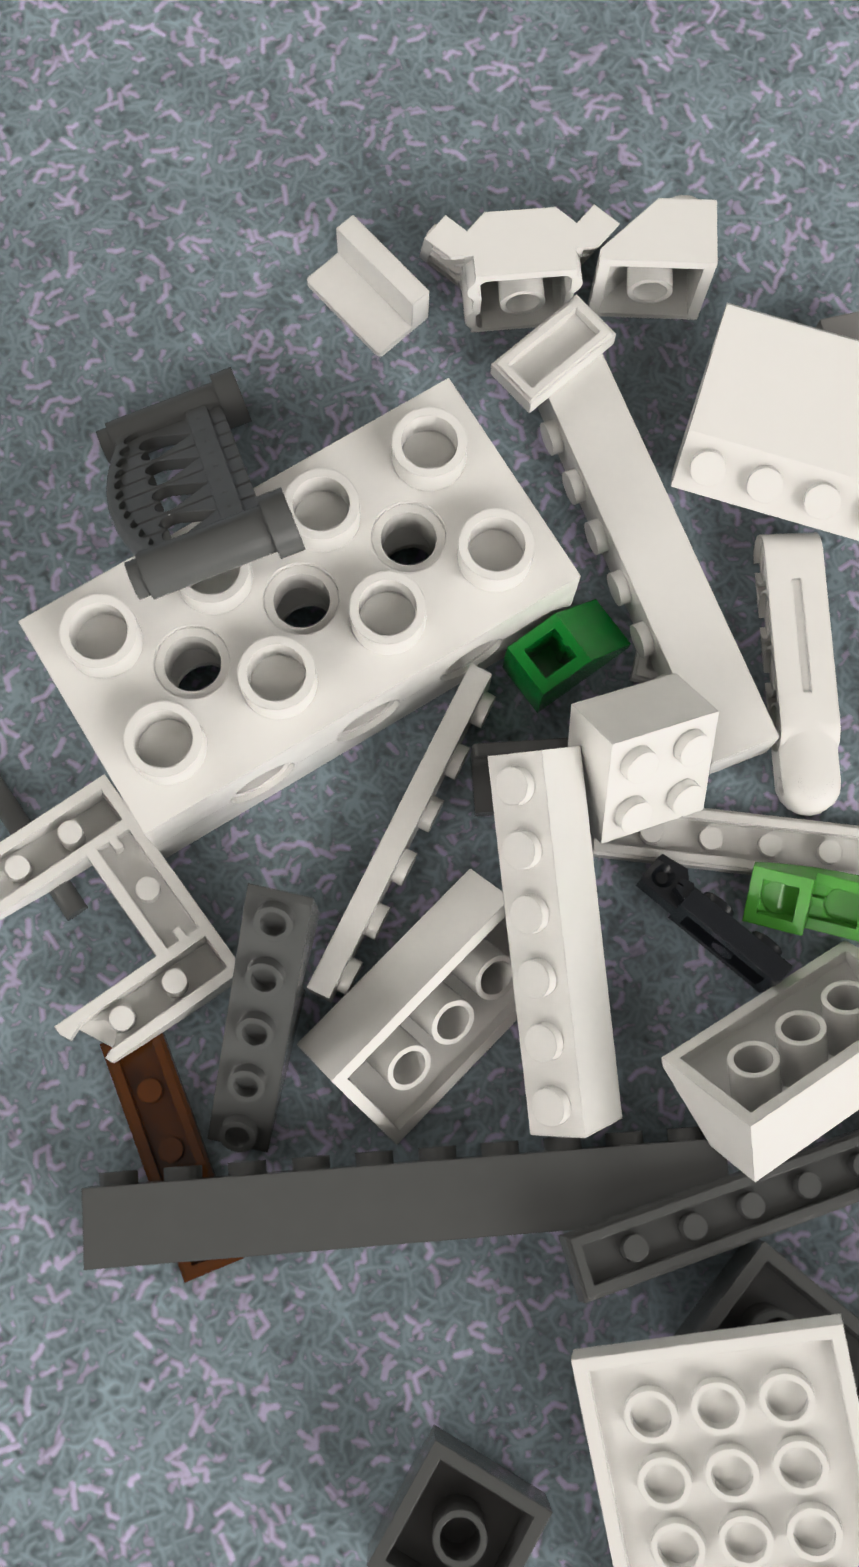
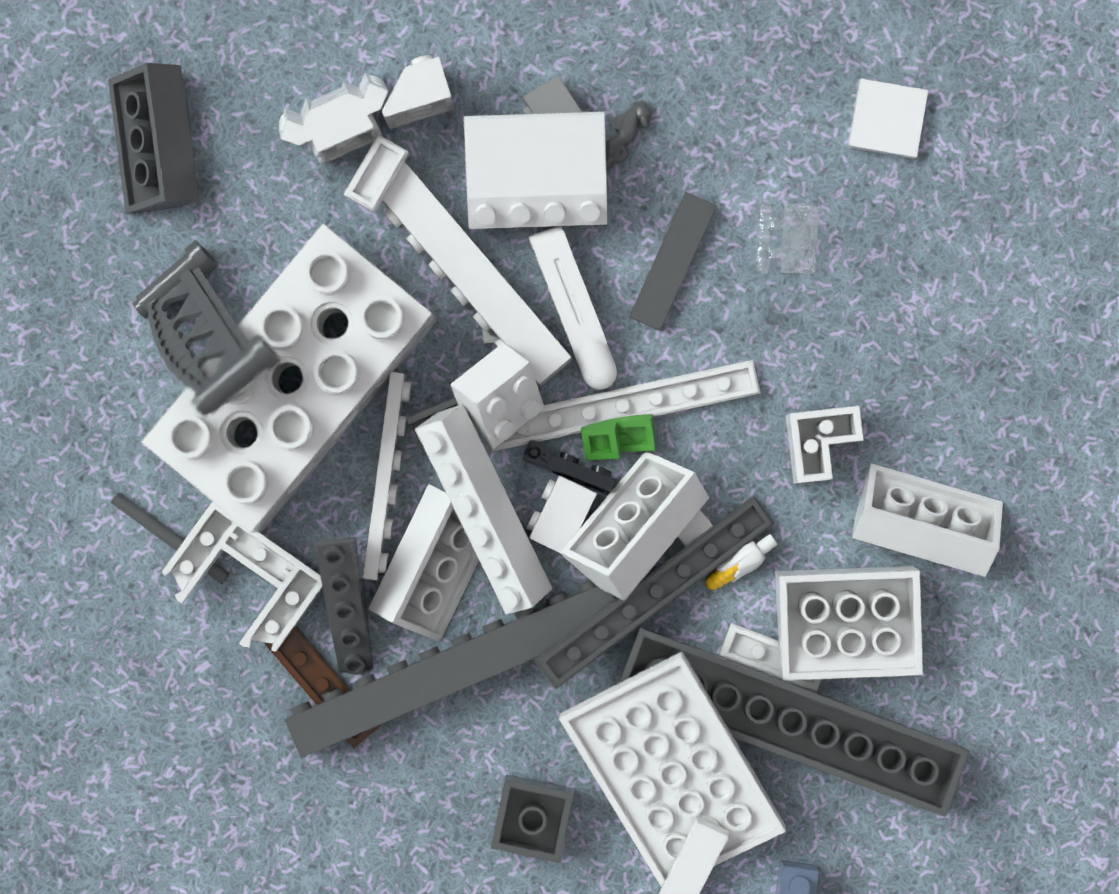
camera: 10 degrees left, 10 degrees up
(225, 205) = (153, 138): none -> dark grey slope
(370, 289) = (256, 162): white panel -> none
(563, 652) = (441, 342): green slope -> none
(678, 996) = (562, 513): none -> white brick

